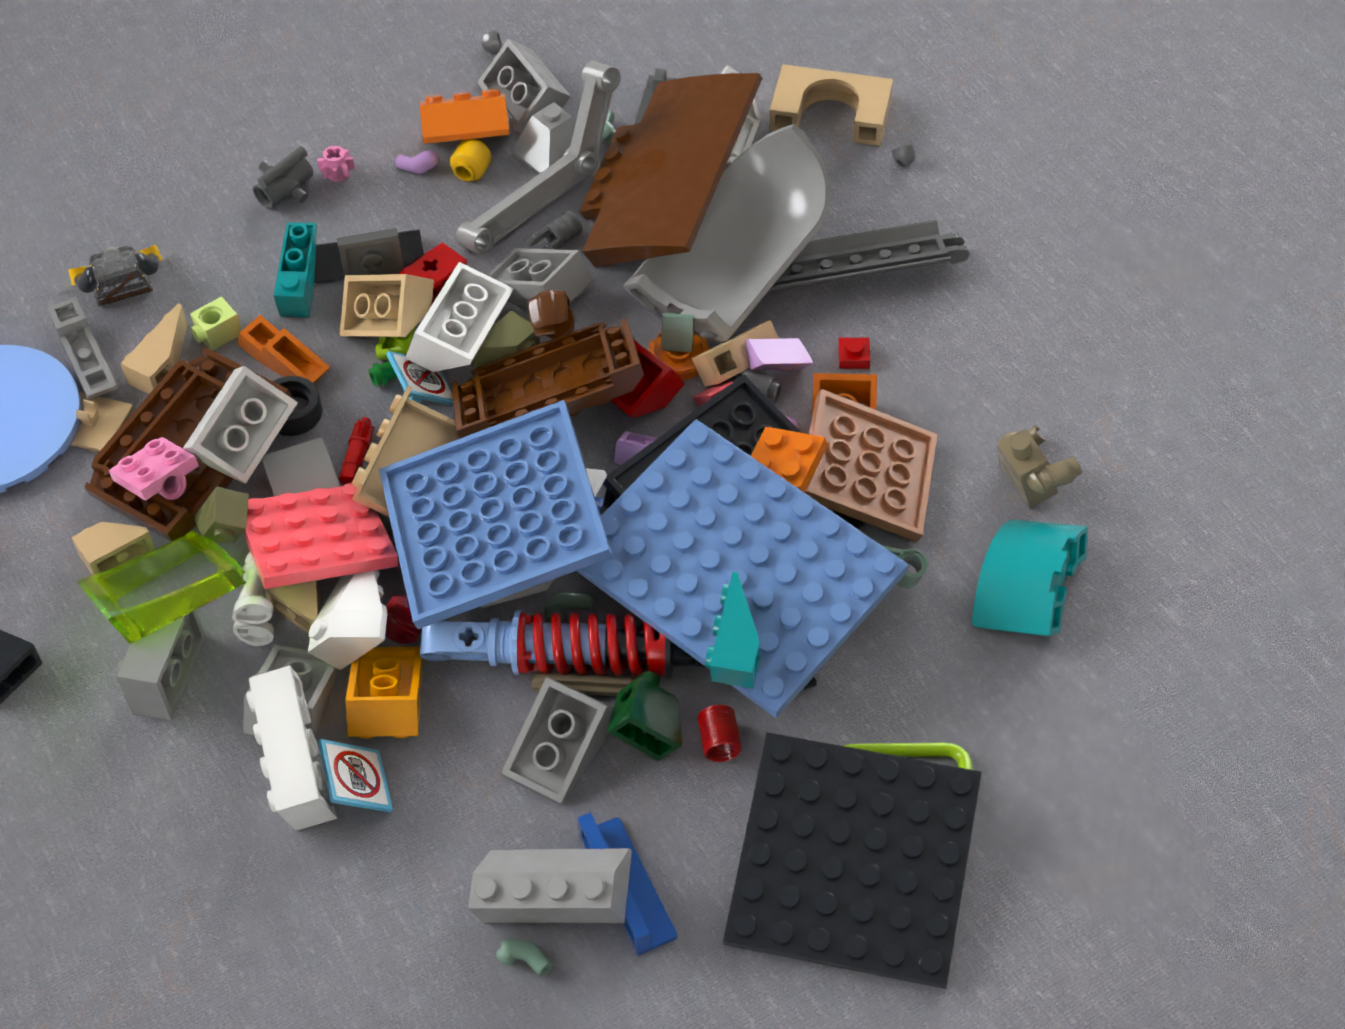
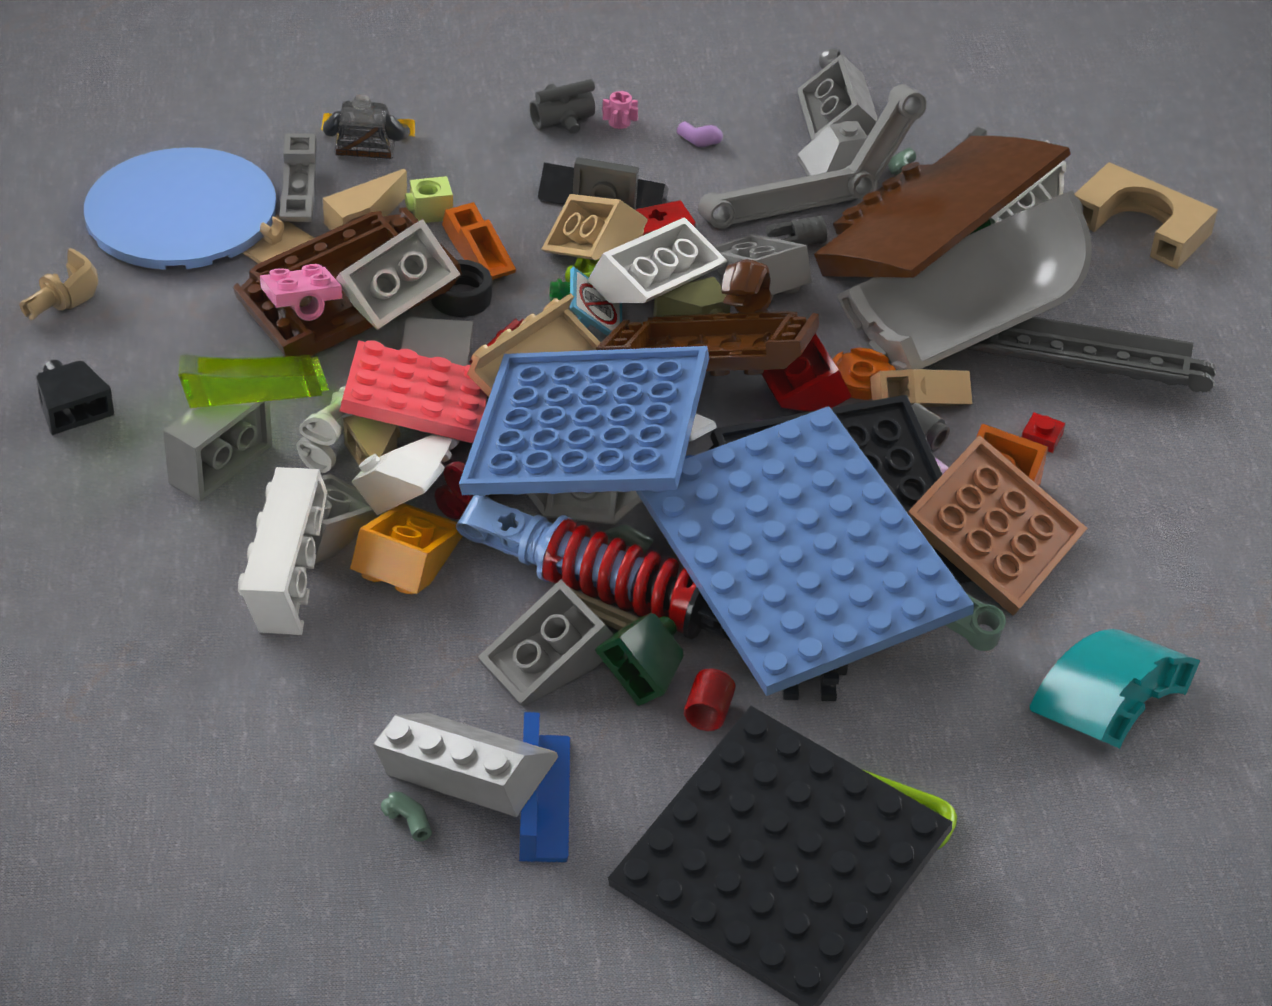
camera: 20 degrees right, 10 degrees down
(111, 545) = (230, 338): tan slope -> none
(223, 515) = (341, 344): olive slope -> none
(296, 271) = (528, 180): teal slope -> none
(354, 776) = (336, 601): piece -> none
(464, 116) = (763, 106): orange slope -> none
(470, 160) = (751, 147): yellow head -> none
(677, 332) = (868, 349): sand green slope -> none
(737, 645) = (754, 606): teal slope -> none
(777, 354) = (958, 402): slope -> none
(790, 454) = (914, 477): orange plate -> none
(904, 155) = (1195, 280): flat silver hinge -> none
(1029, 467) = (1164, 585): dark tan torso -> none

